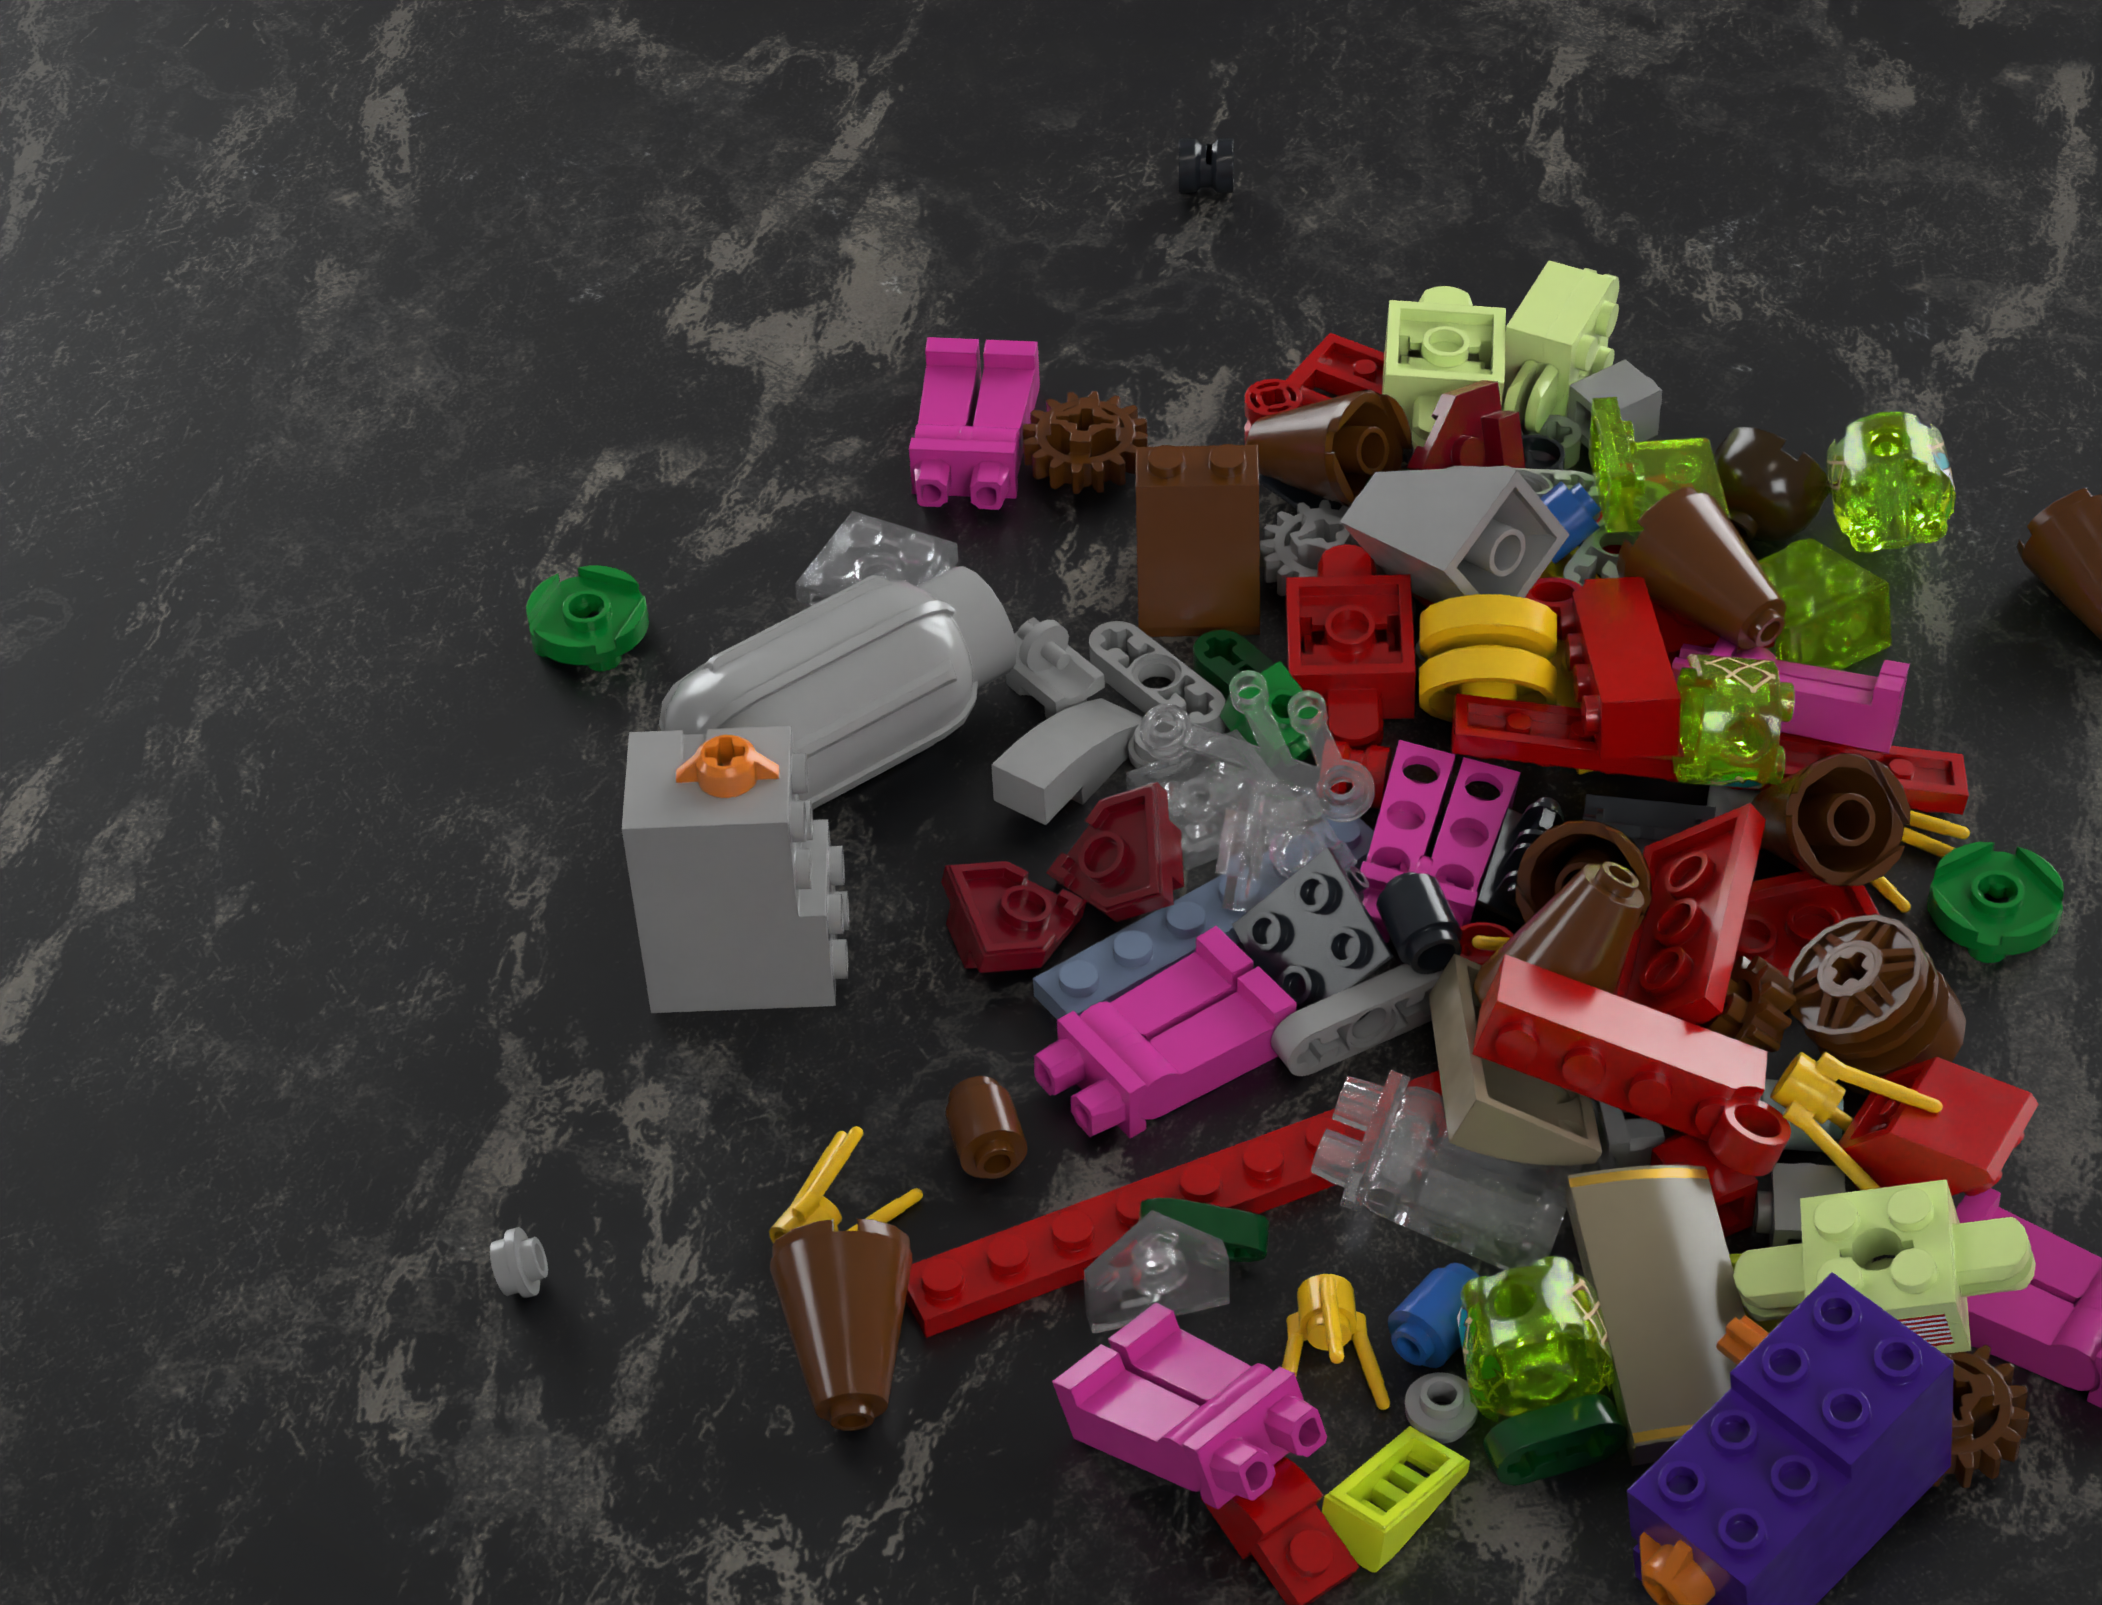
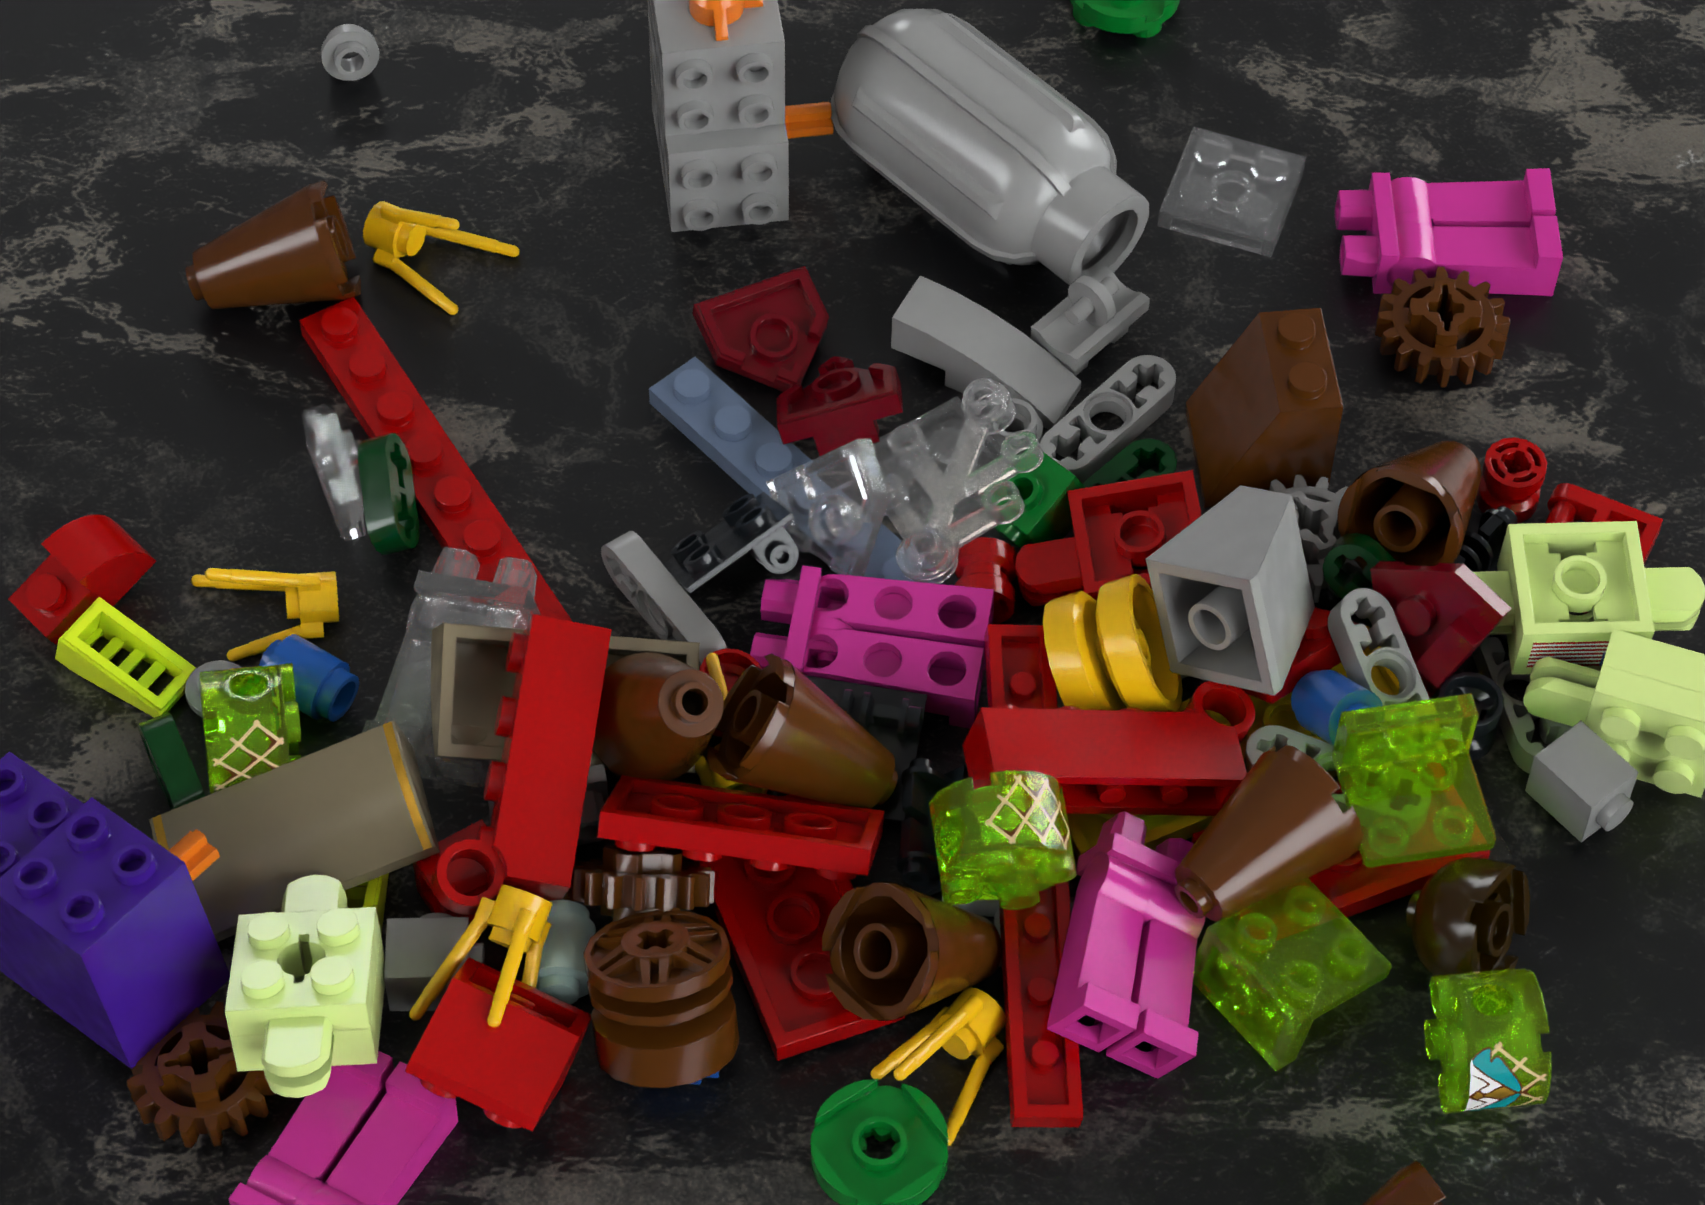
camera: 80 degrees right, 10 degrees up
(985, 1128) = (509, 337): reddish brown brick -> none
(1166, 1039) = (625, 456): dark pink hips -> none
(1187, 1409) = (175, 487): dark pink hips -> none
(1420, 922) = (733, 610): black brick -> none

